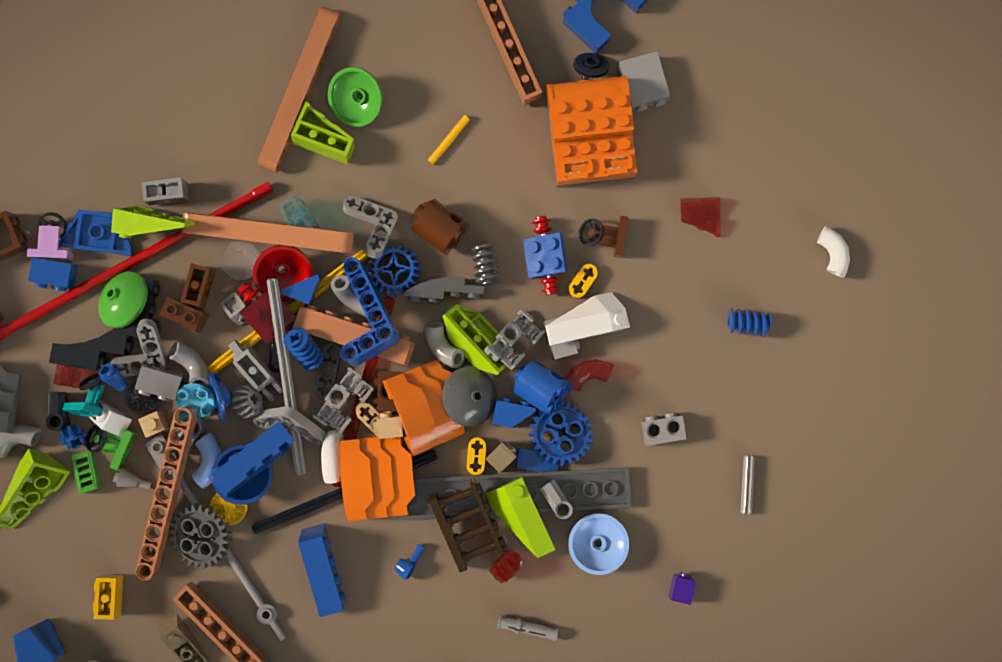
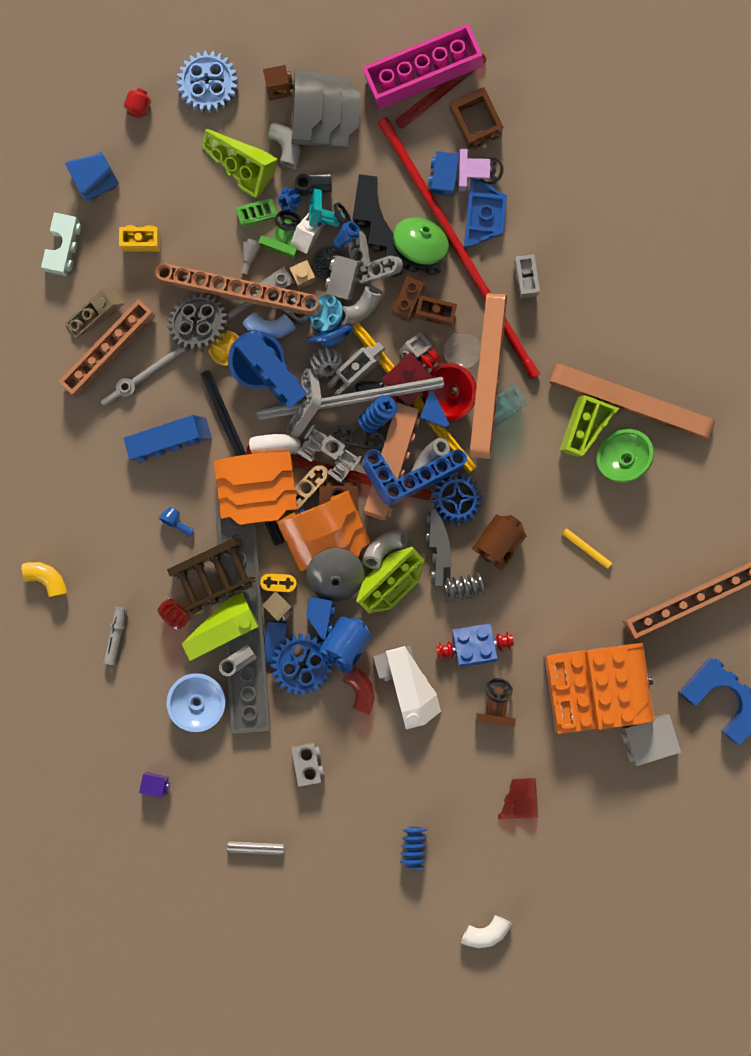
camera: 90 degrees right, 0 degrees up
(67, 376) = (346, 192): clear red brick -> none
(142, 220) = (497, 257): lime wedge -> none
(378, 219) = (505, 481): light grey beam -> none
(388, 425) = (305, 496): tan brick -> none
(517, 327) = (403, 619): light grey piece -> none
(579, 278) = (452, 678): yellow beam -> none
(591, 65) = (665, 687): black wheel -> none

